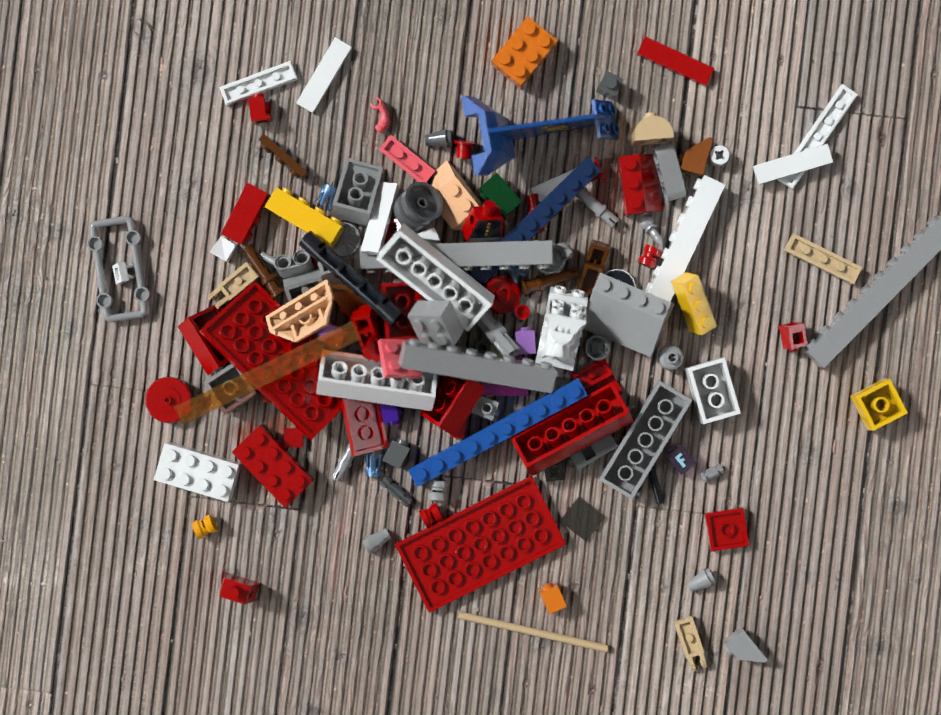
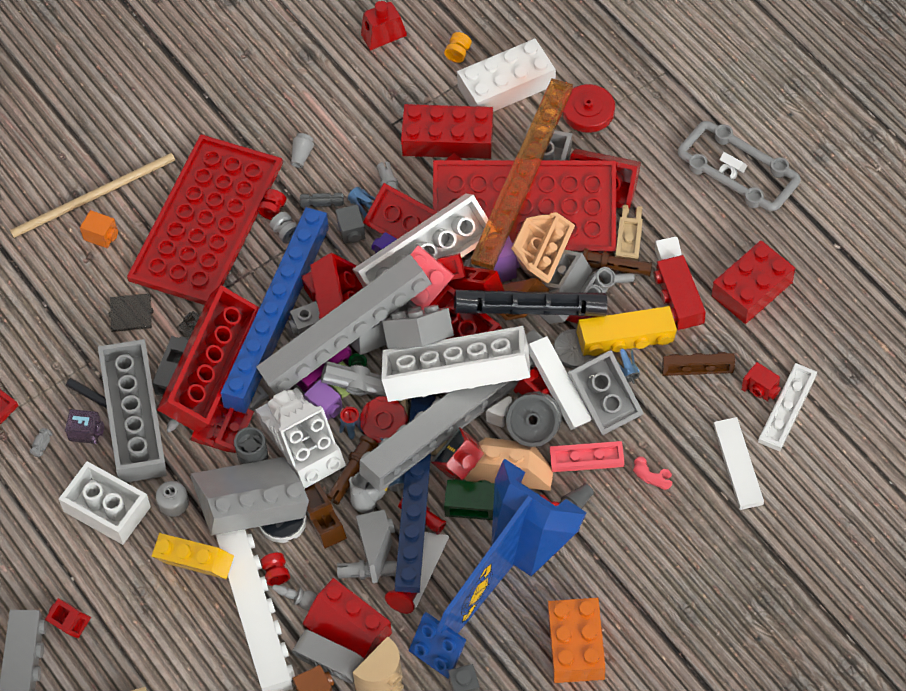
camera: 135 degrees right, 30 degrees down
(195, 178) = (753, 282): none -> red brick
(579, 218) = (376, 540): none -> light grey slope

